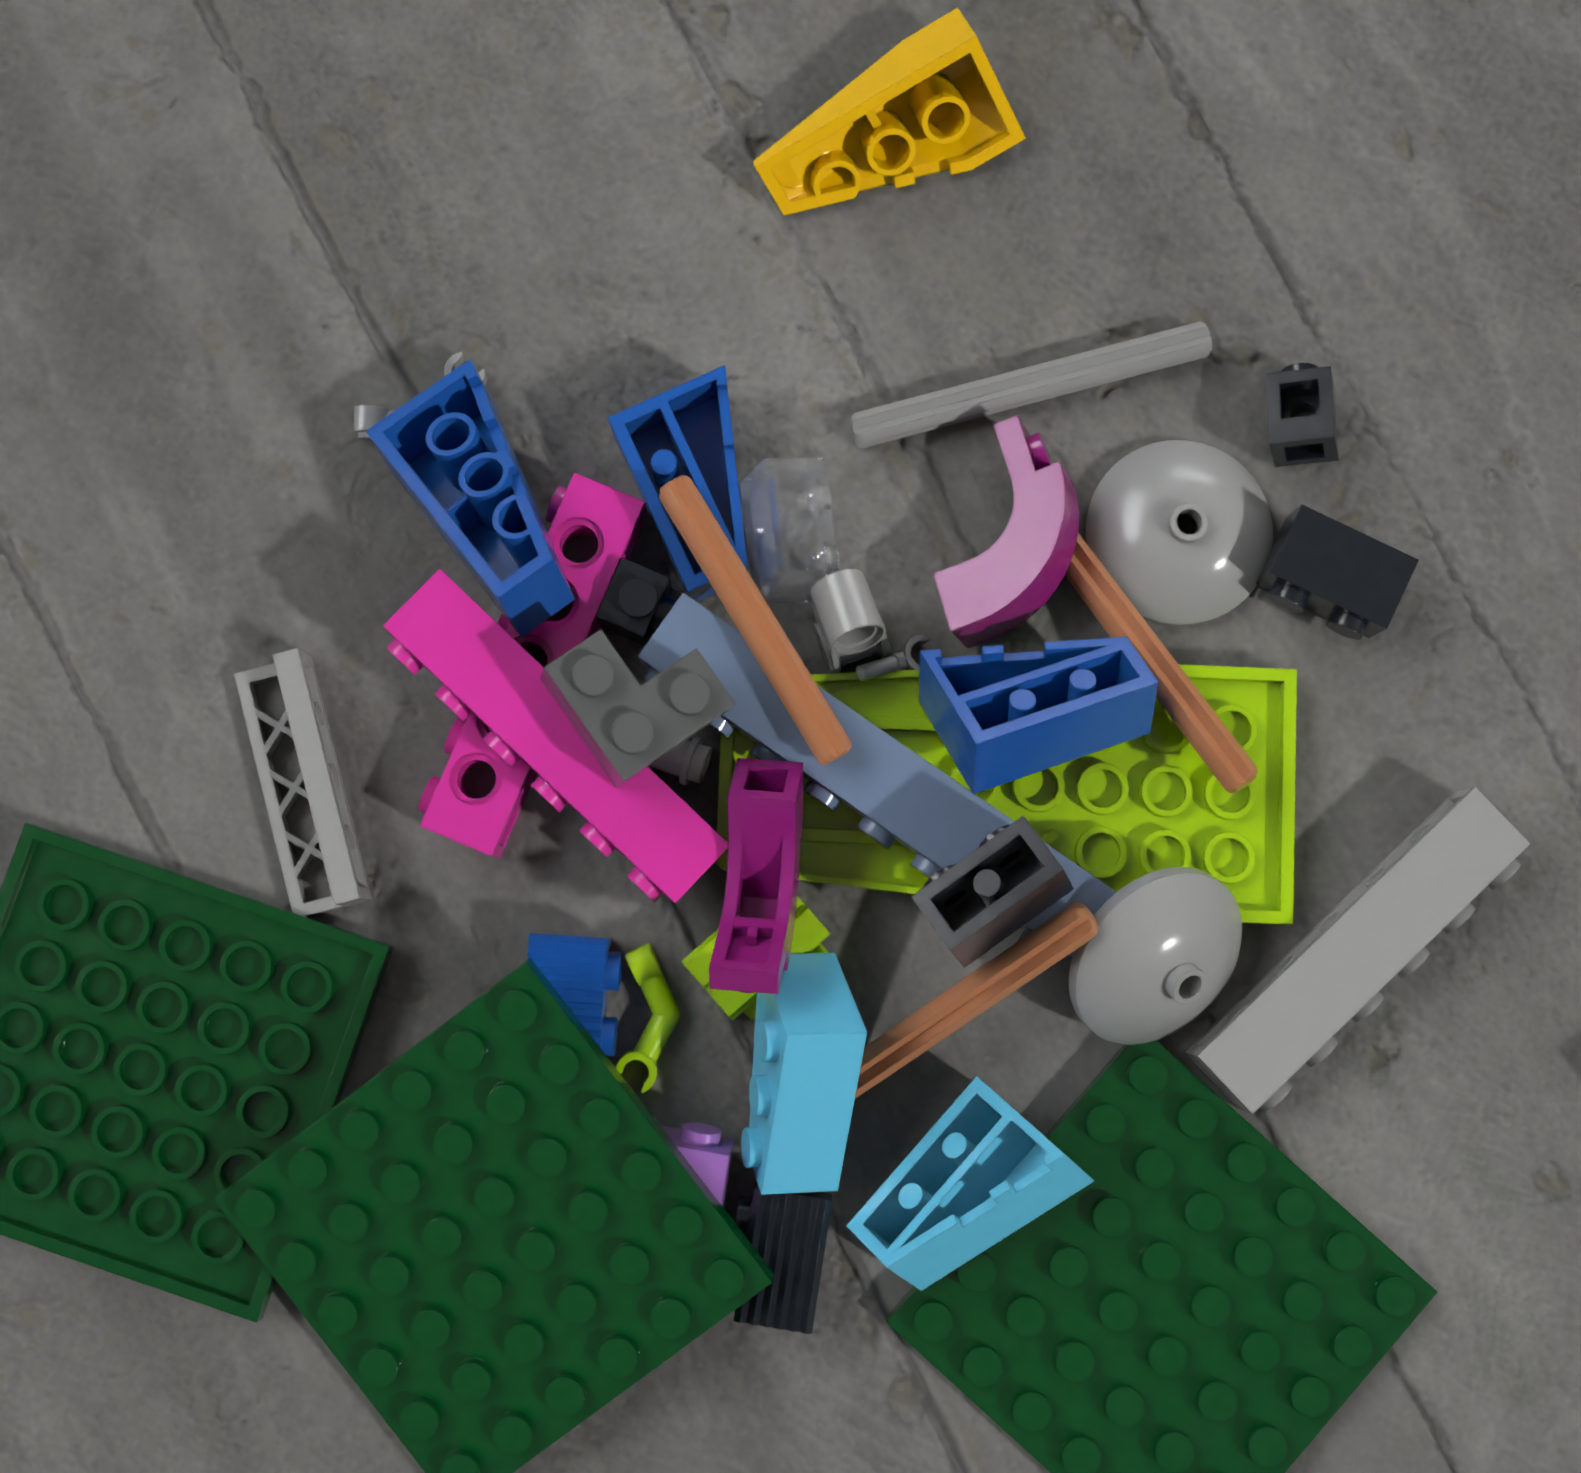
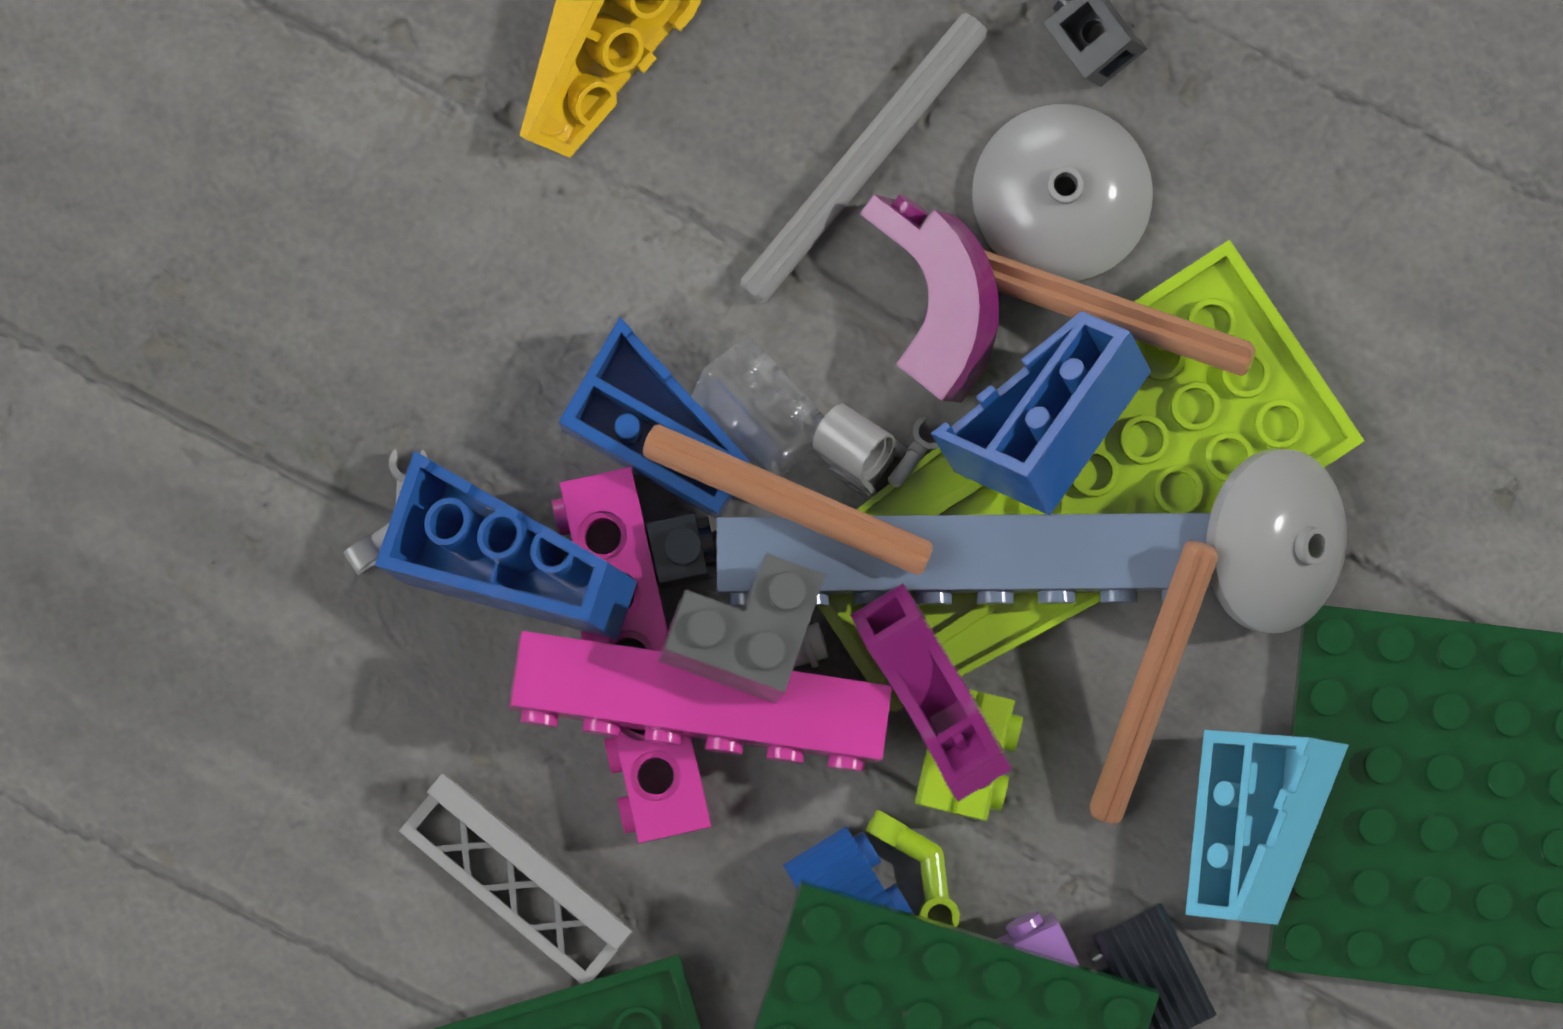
camera: 30 degrees left, 0 degrees up
(803, 1078) = (1073, 824): medium azure wedge -> none
(992, 891) = (1117, 578): black brick -> none
(1336, 574) = (1207, 144): black brick -> none
(1358, 950) = (1428, 426): light grey brick -> none

